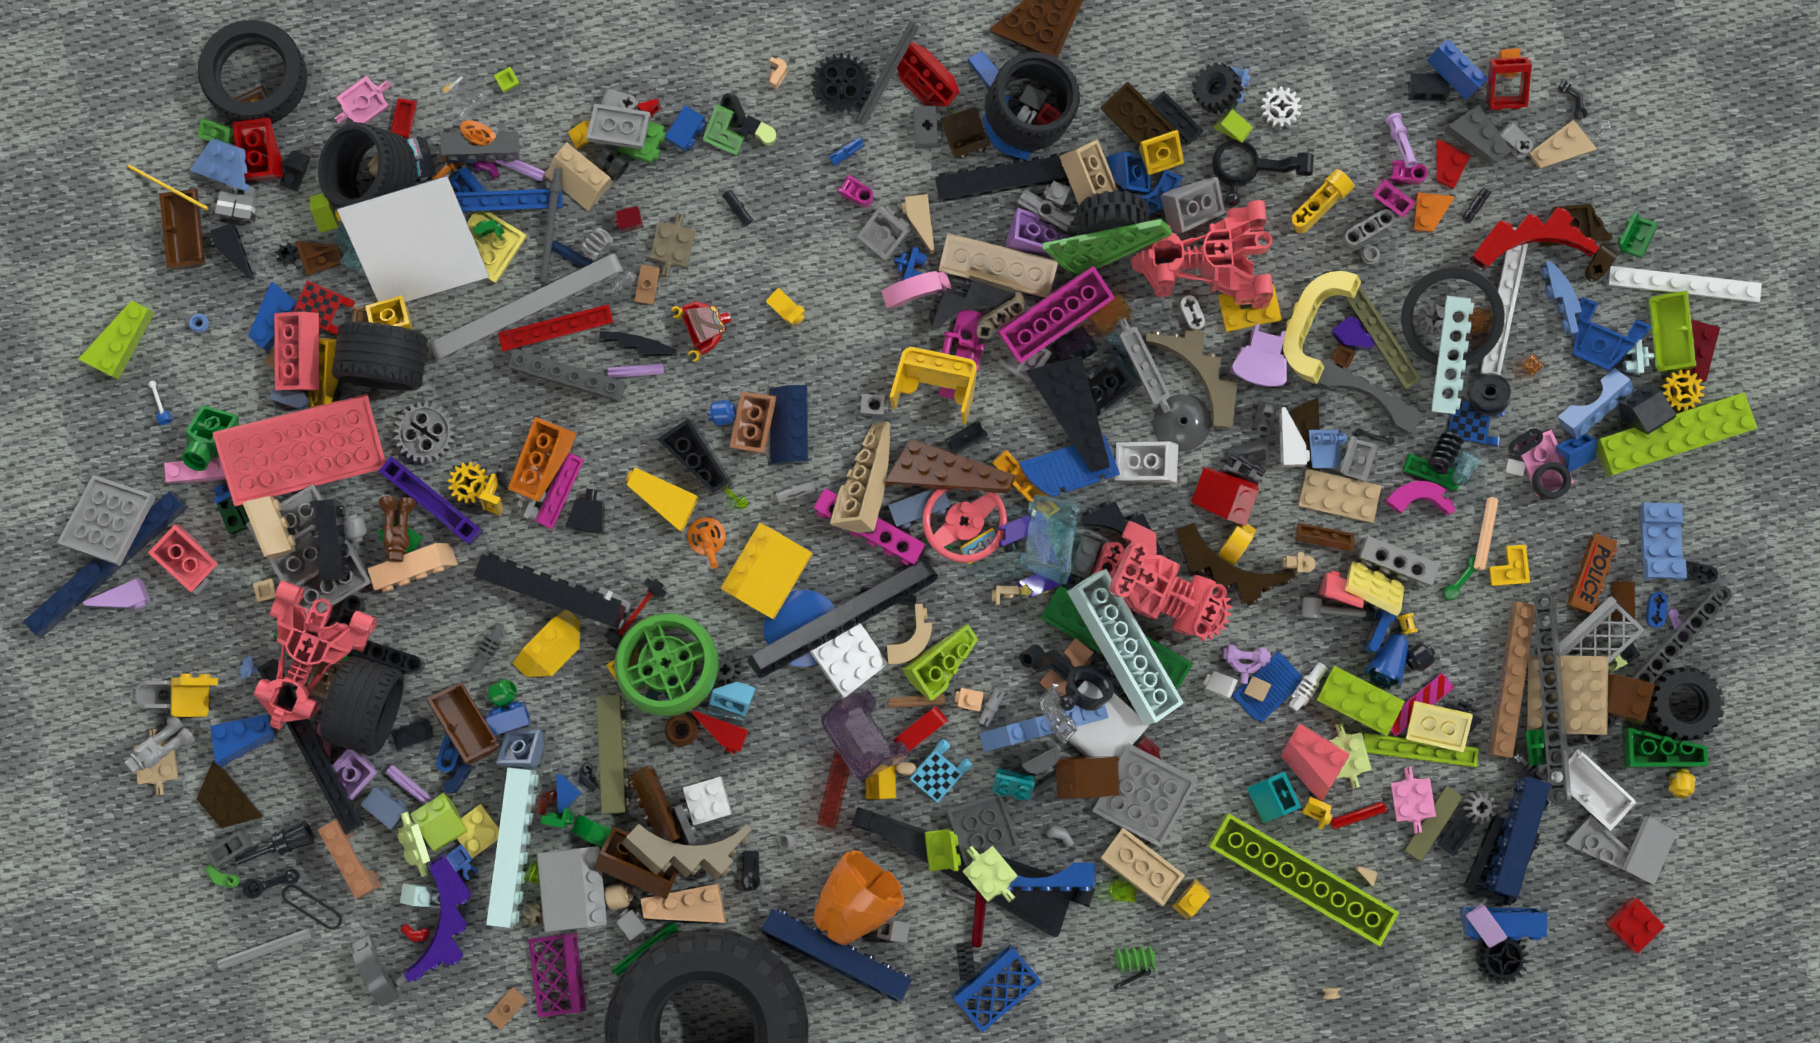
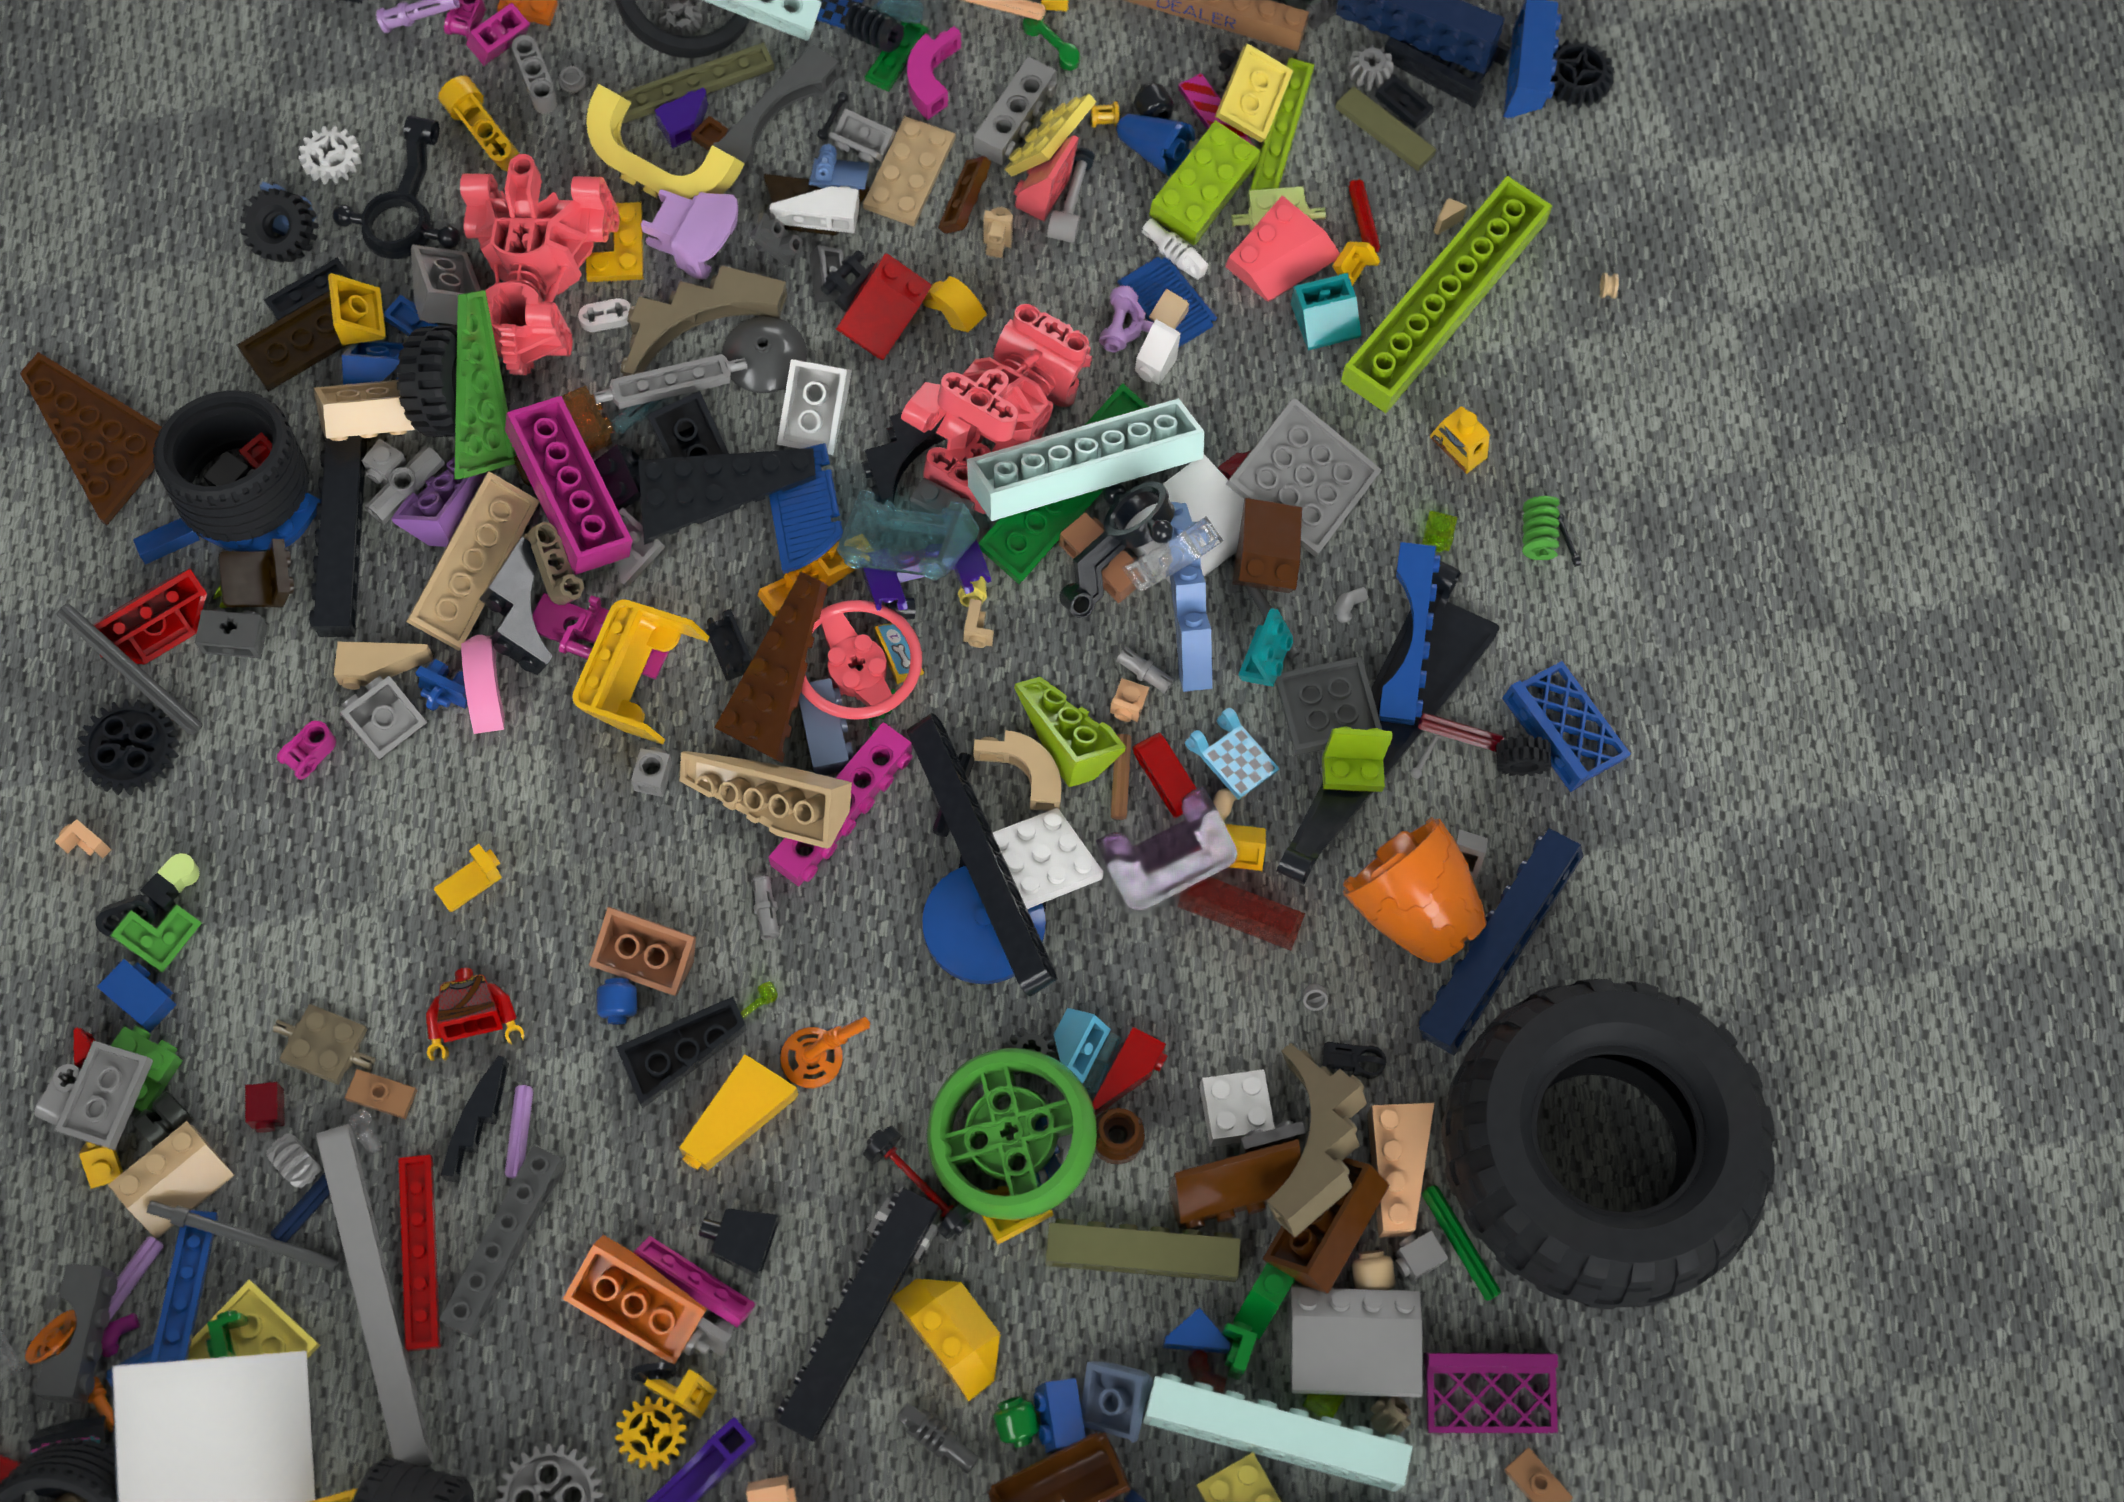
camera: 85 degrees left, 15 degrees down
(585, 777) = (1174, 1302): black arm -> none
(737, 208) = (288, 933): black pin -> none
(766, 571) = (885, 962): yellow slope -> none
(789, 425) = (660, 894): dark blue slope -> none
(846, 151) = (239, 756): blue axle -> none
(990, 874) = (1399, 694): yellowish green plate -> none
(1043, 761) = (1236, 591): dark grey container -> none
(1142, 867) = (1407, 498): tan plate -> none
(1233, 125) = (339, 216): lime slope -> none
(1247, 584) = (982, 337): dark brown arch -> none
(1378, 631) = (1109, 144): blue container -> none
(1413, 800) = (1350, 145): bright pink plate -> none
(1486, 926) = (1538, 65): lavender slope -> none

